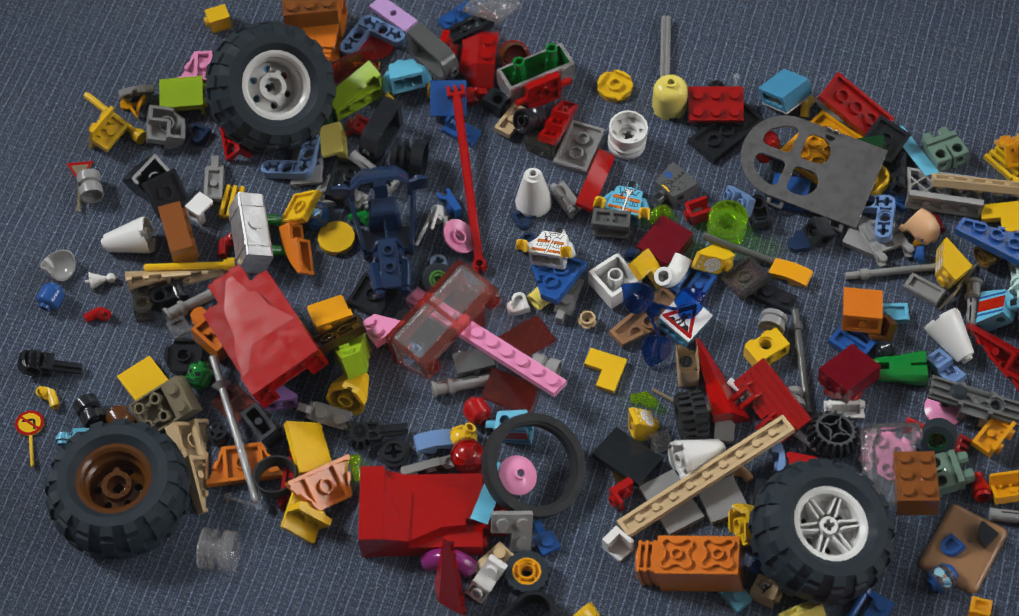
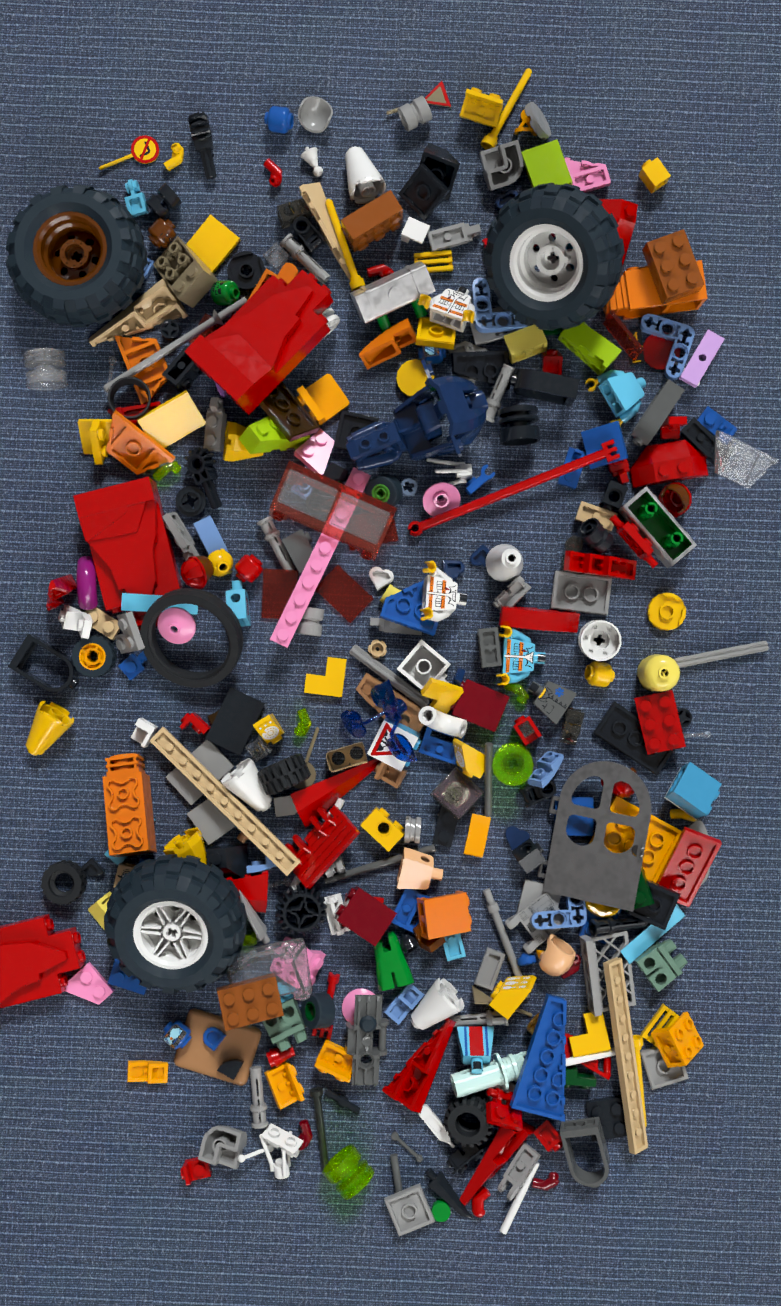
camera: 75 degrees right, 30 degrees up
(284, 188) = (450, 308): none -> white torso
(604, 324) = (387, 674): none -> light grey axle
(659, 144) = (599, 674): none -> yellow head
(704, 175) = (571, 726): none -> clear smoke leg
(713, 331) = (389, 774): none -> medium nougat bracket
(814, 326) = (417, 870): none -> light nougat torso

